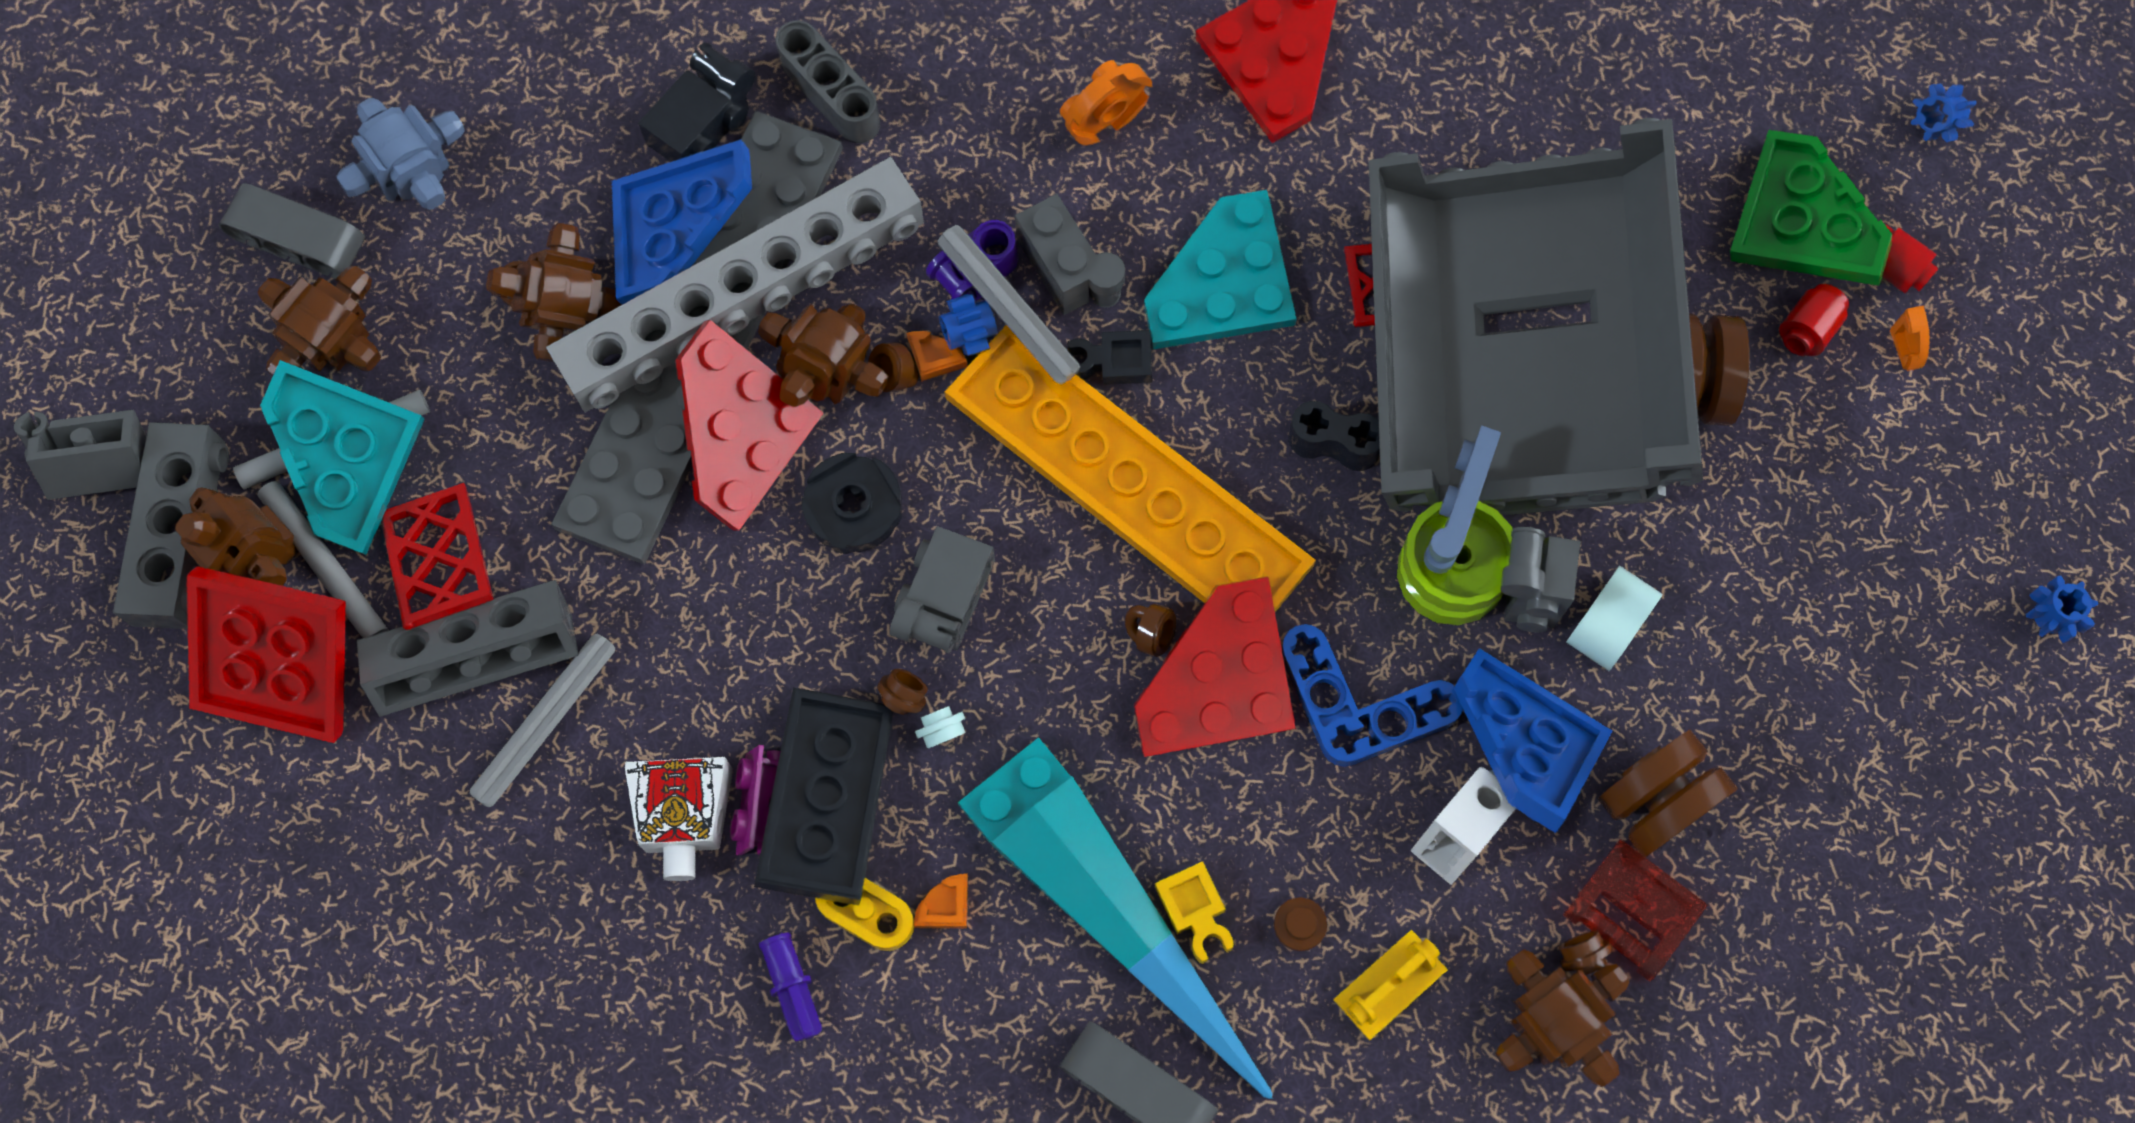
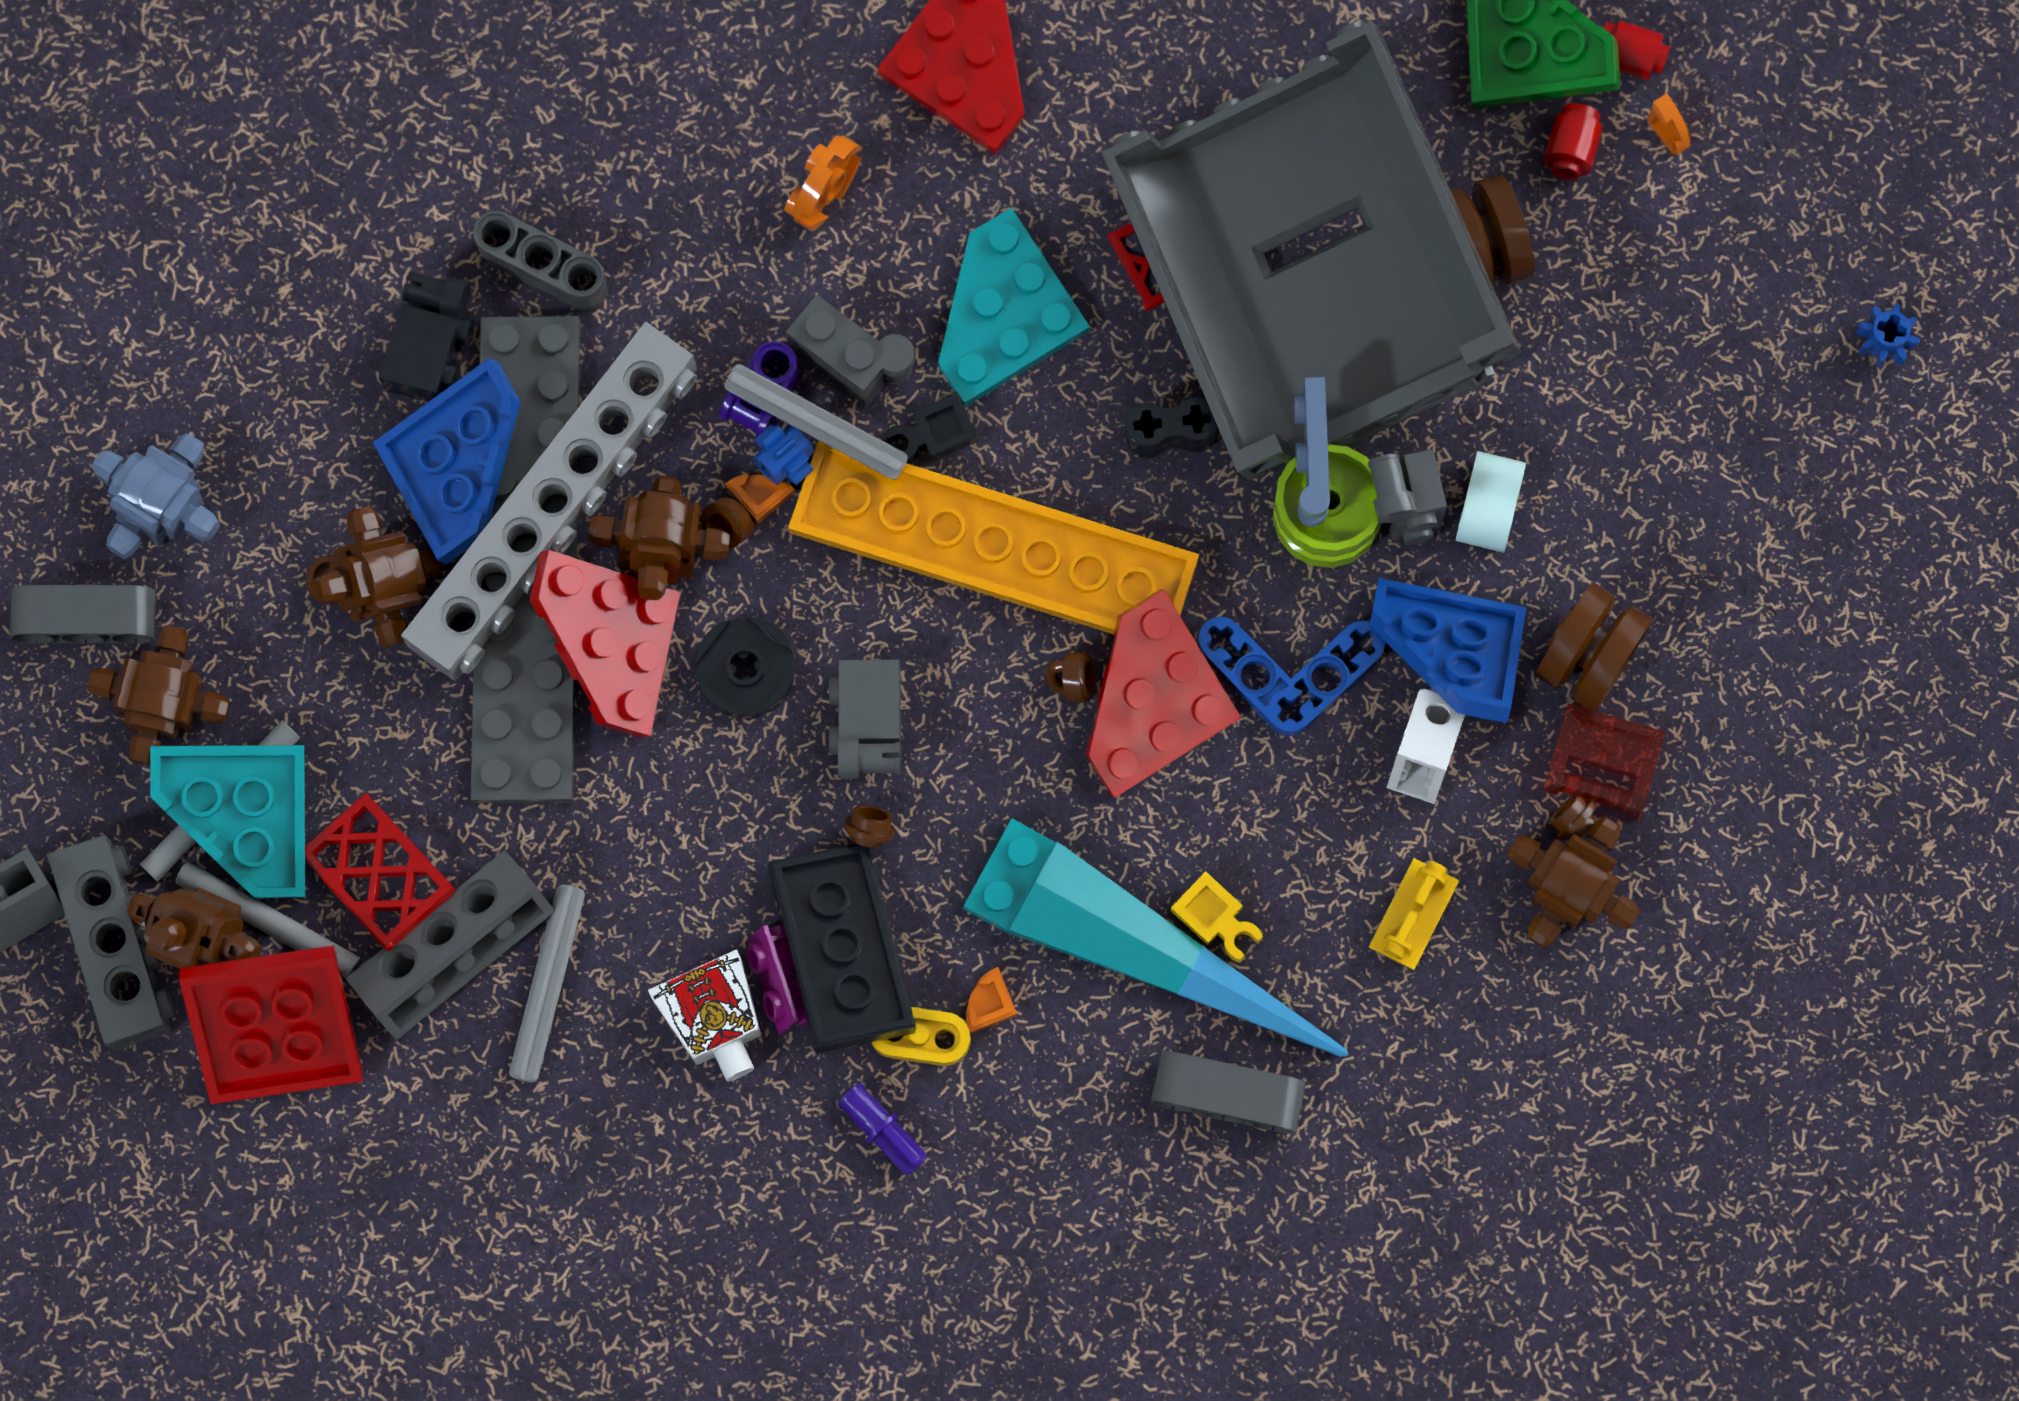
camera: 20 degrees left, 5 degrees up
(940, 727) = (918, 844): light aqua plate -> none
(1300, 924) = (1313, 892): reddish brown plate -> none

